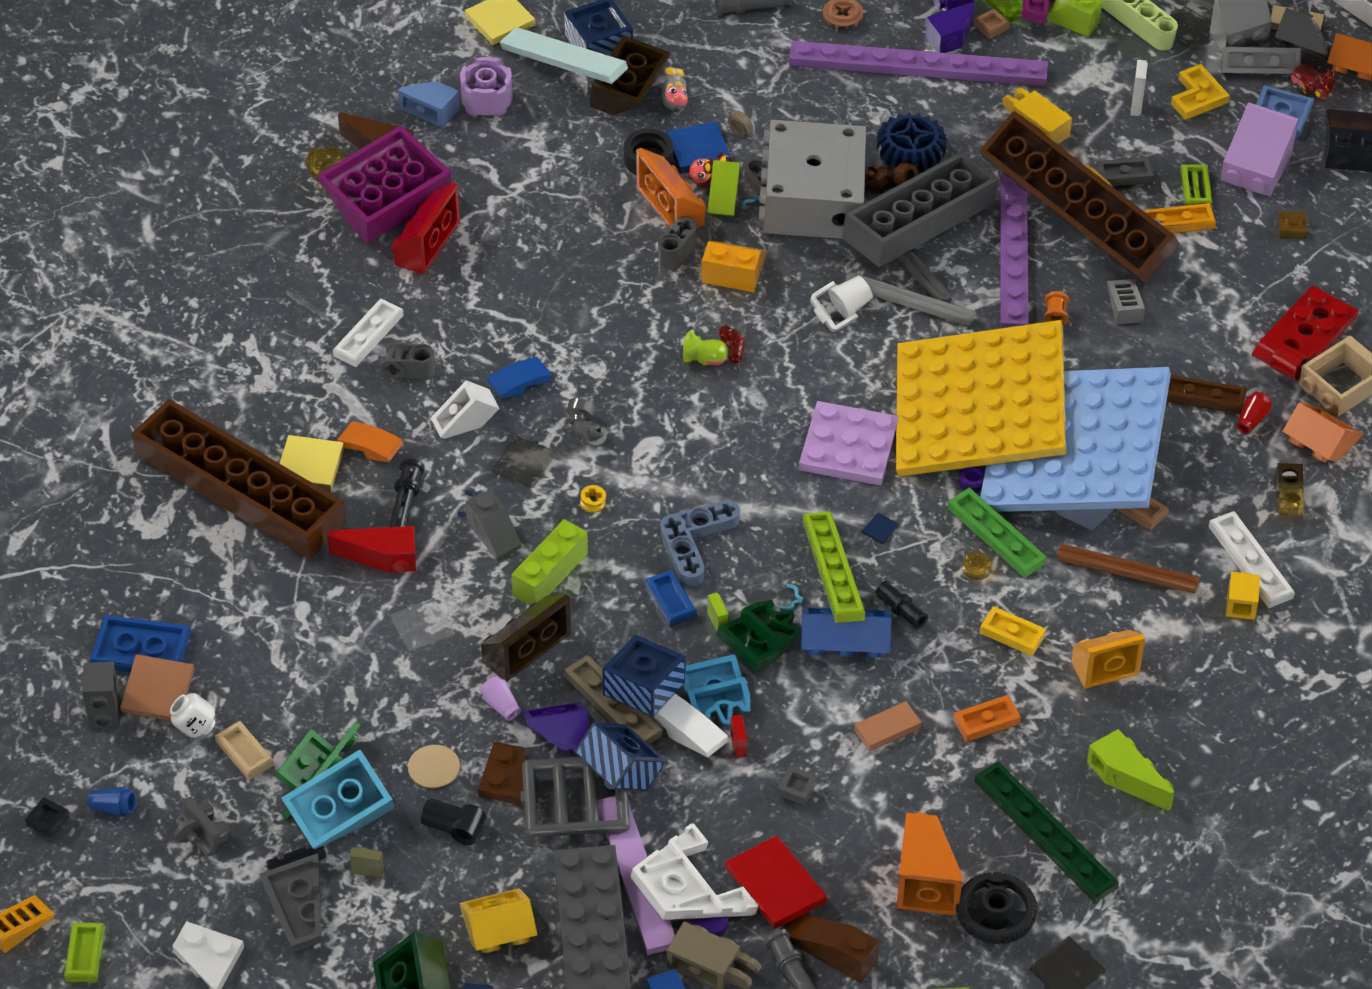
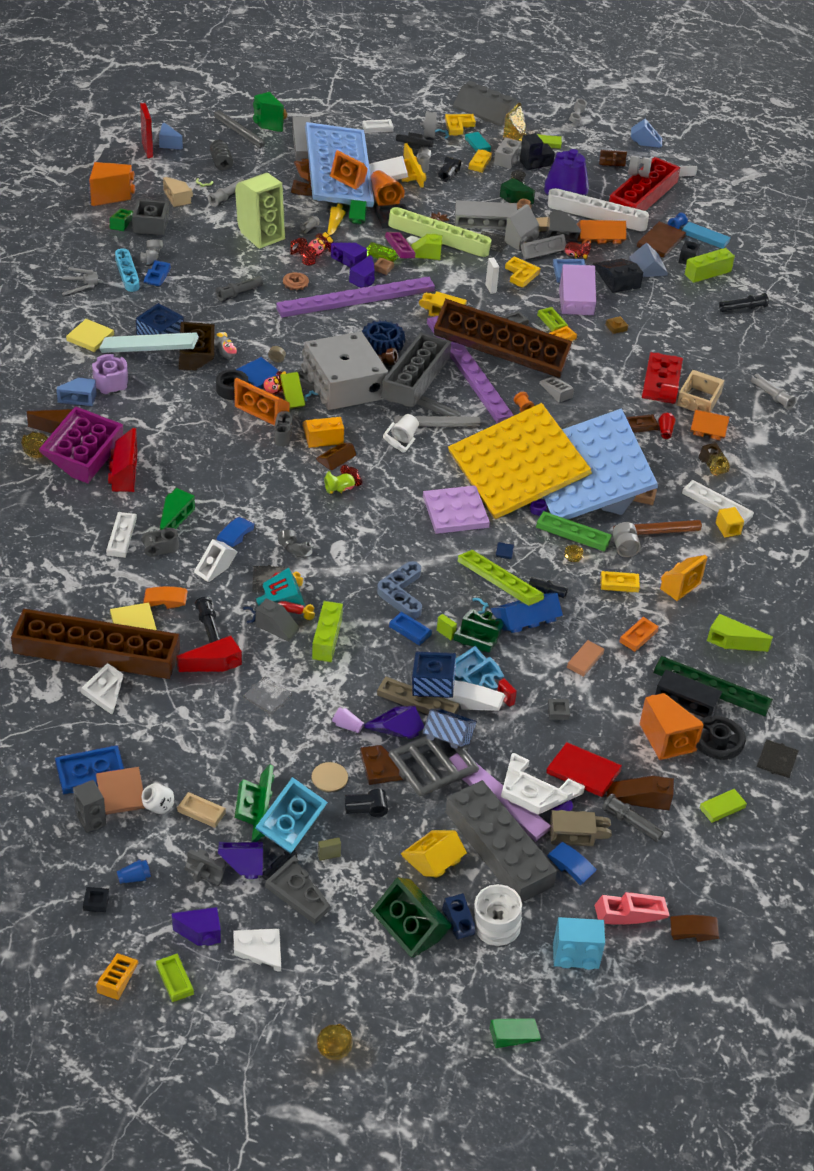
camera: 30 degrees left, 5 degrees down
(149, 899) = (198, 926): none -> dark purple slope
(218, 542) = (104, 687): none -> white wing
(253, 831) = (243, 857): none -> dark purple slope
(454, 321) = (177, 508): none -> green slope
(525, 490) = (285, 590): none -> torso
(528, 636) = (341, 677): dark brown slope -> none
(600, 496) = (325, 591): yellow bush -> none
(732, 308) = (337, 455): none -> reddish brown slope
(995, 830) = (689, 694): none -> black brick
(1062, 571) = (626, 539): none -> light grey wheel

